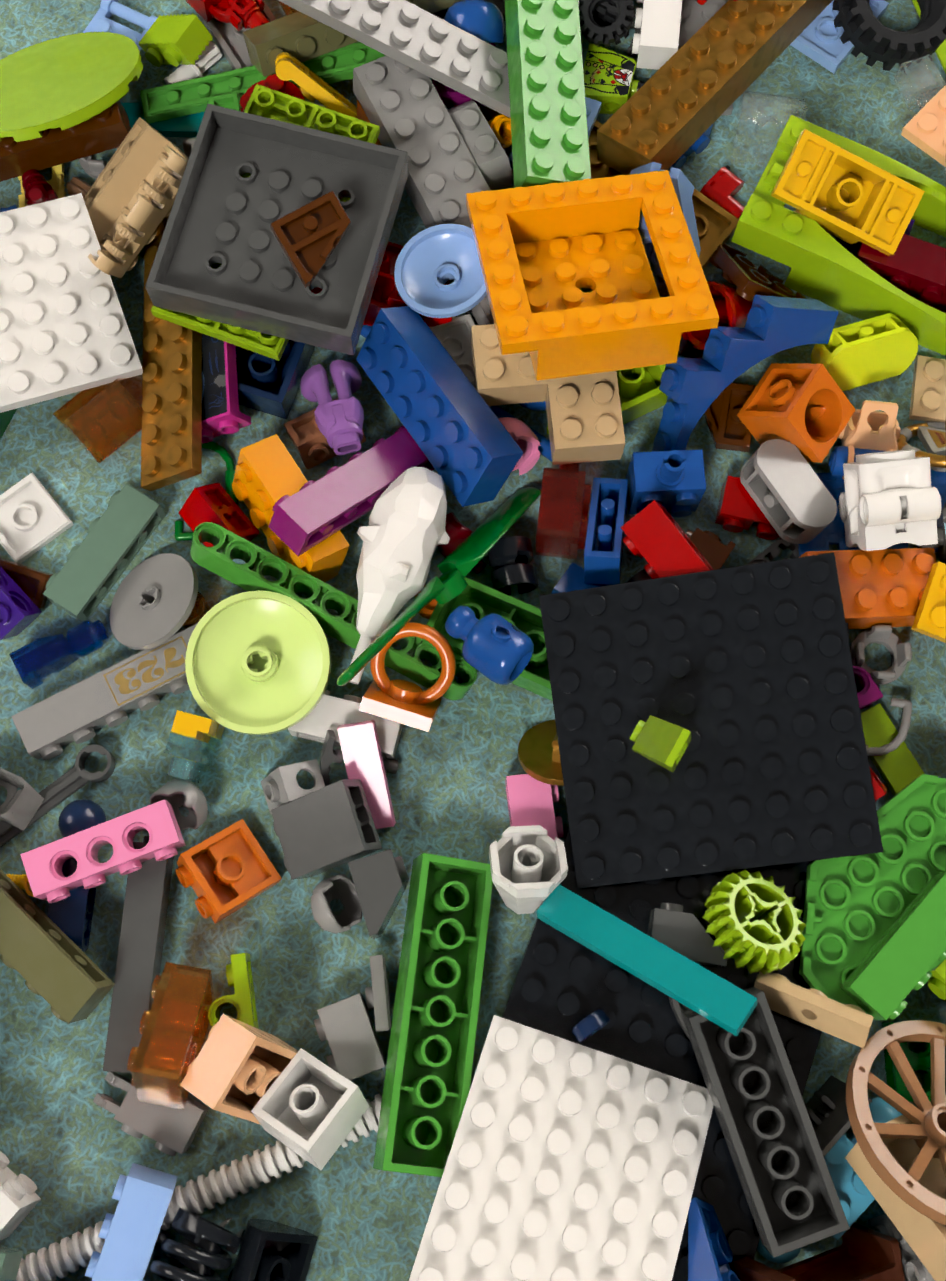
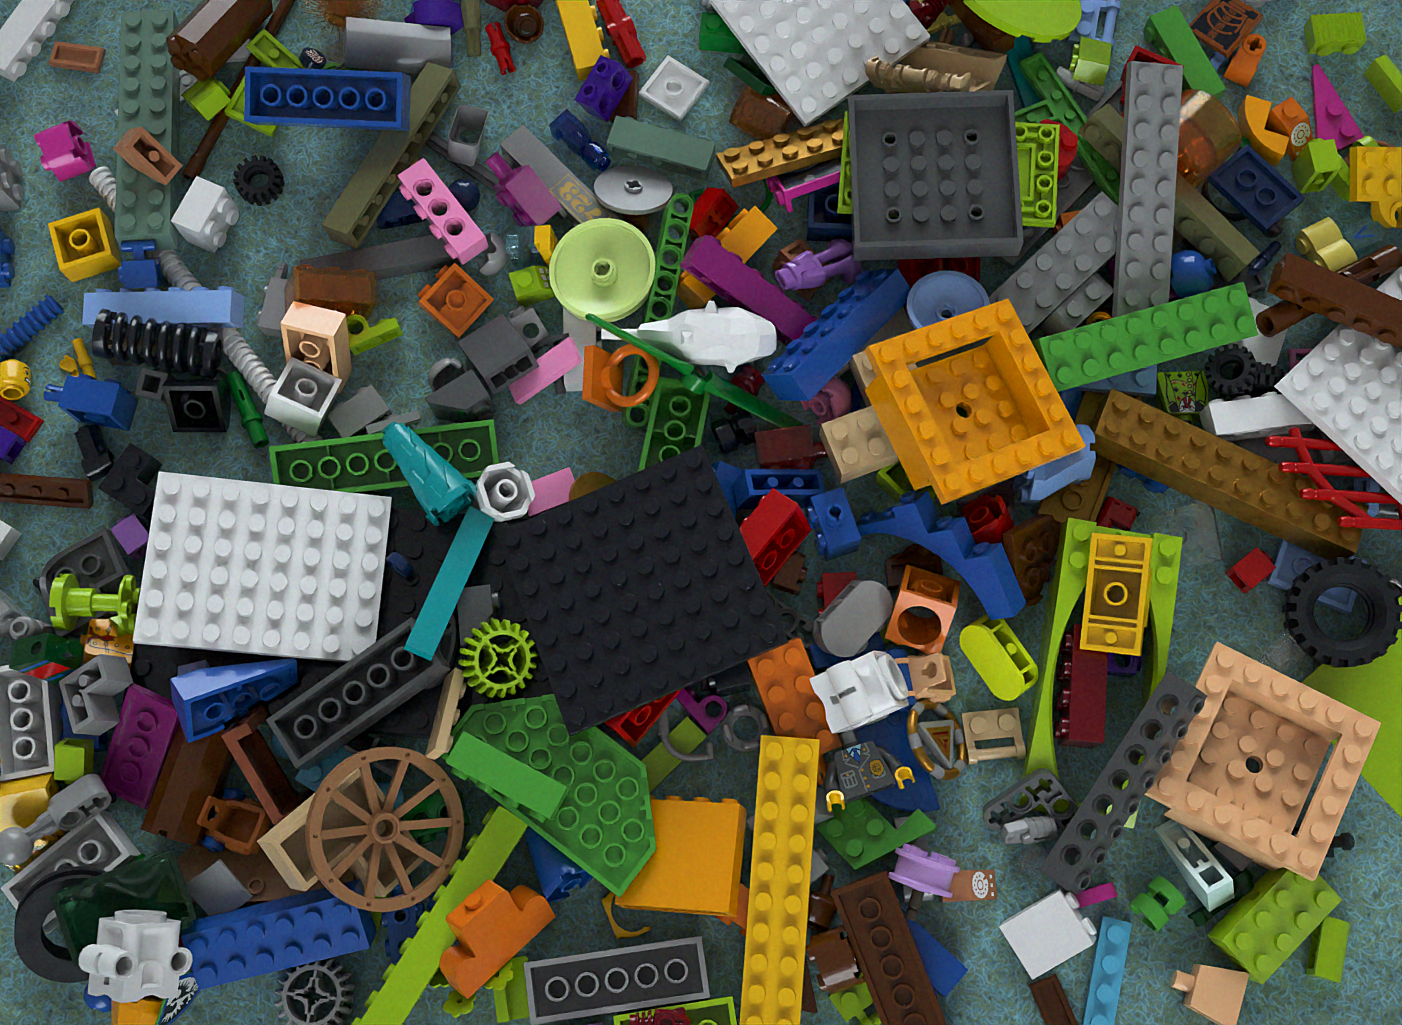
camera: 80 degrees right, 0 degrees up
(46, 414) = (751, 74): none -> dark green slope
(116, 736) = (522, 193): none -> magenta brick
(240, 762) = (531, 285): none -> lime slope
(293, 1198) = (250, 418): none -> green pin
(311, 85) = (1080, 170): yellow plate -> none
(311, 234) = (924, 193): reddish brown wing -> none
(491, 644) = (655, 420): blue piece -> none
(494, 949) = (433, 480): none -> teal cone
(660, 741) = (602, 551): lime slope -> none
(820, 79) = (1251, 569): none -> red brick

